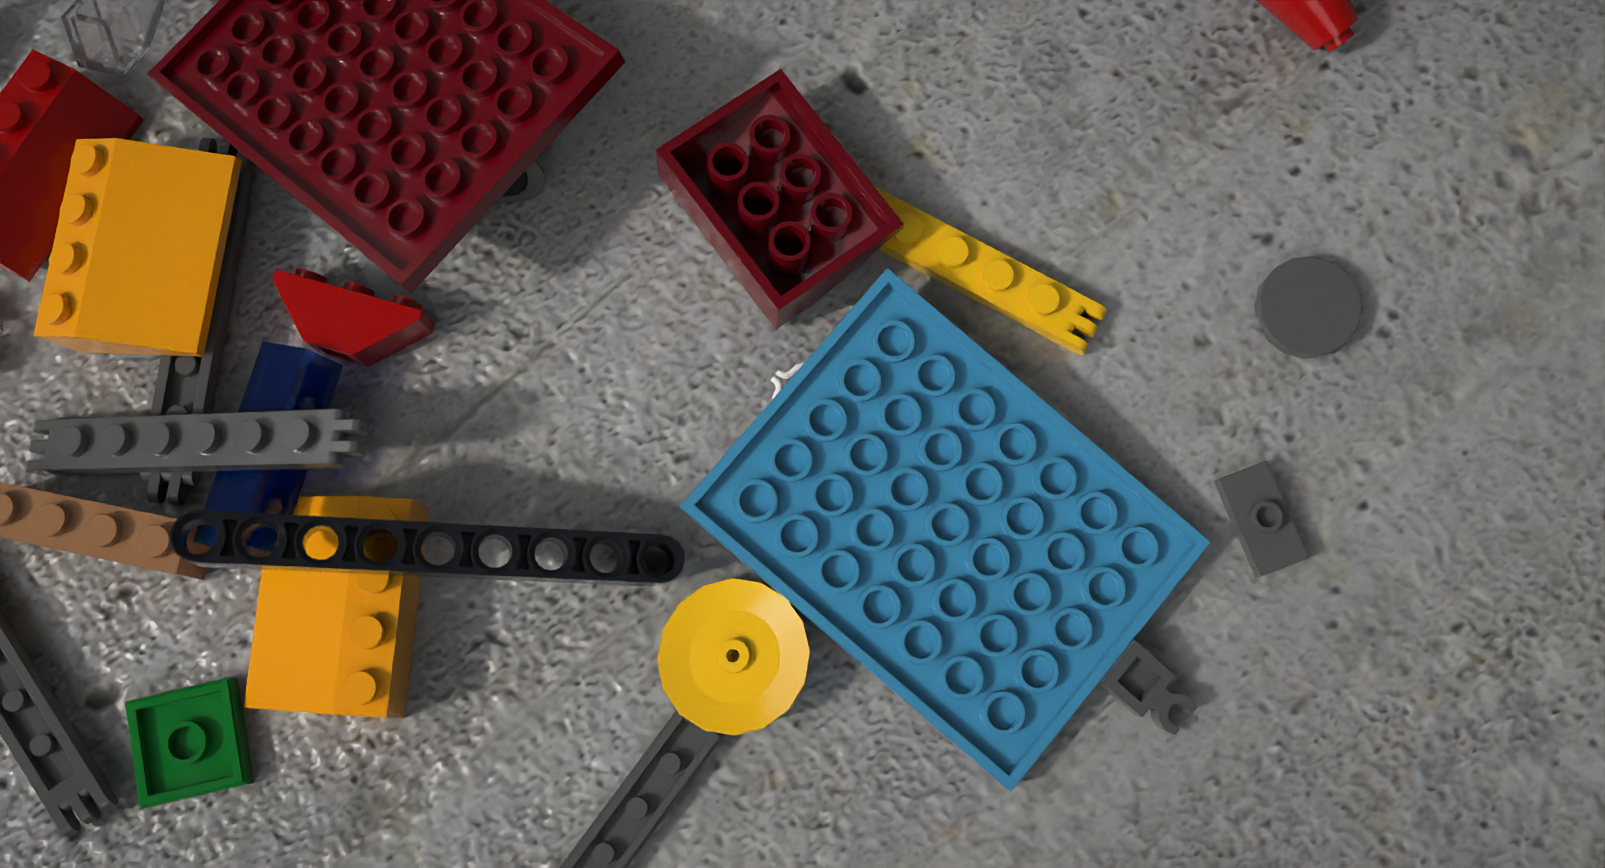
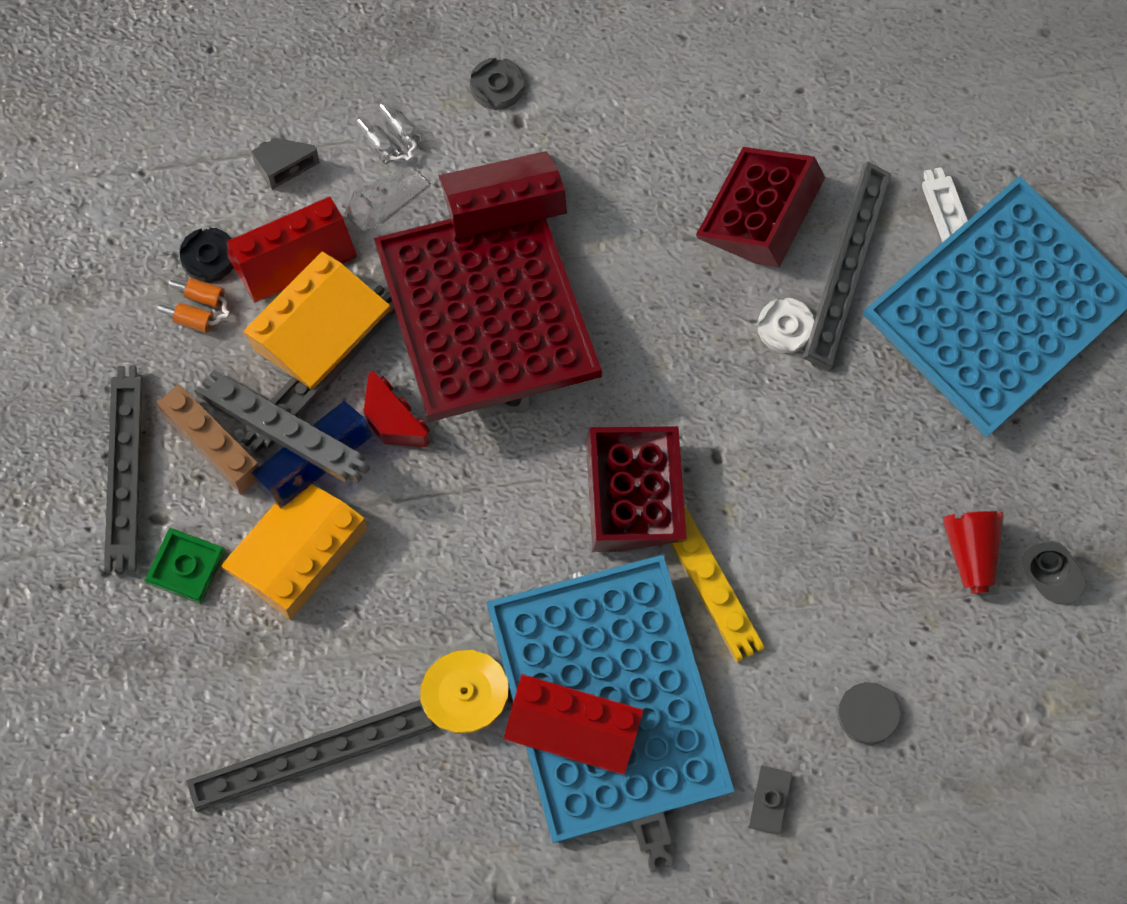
camera: 30 degrees right, 10 degrees down
(352, 533) = (354, 533): black beam -> none
(931, 605) = (573, 724): none -> red slope

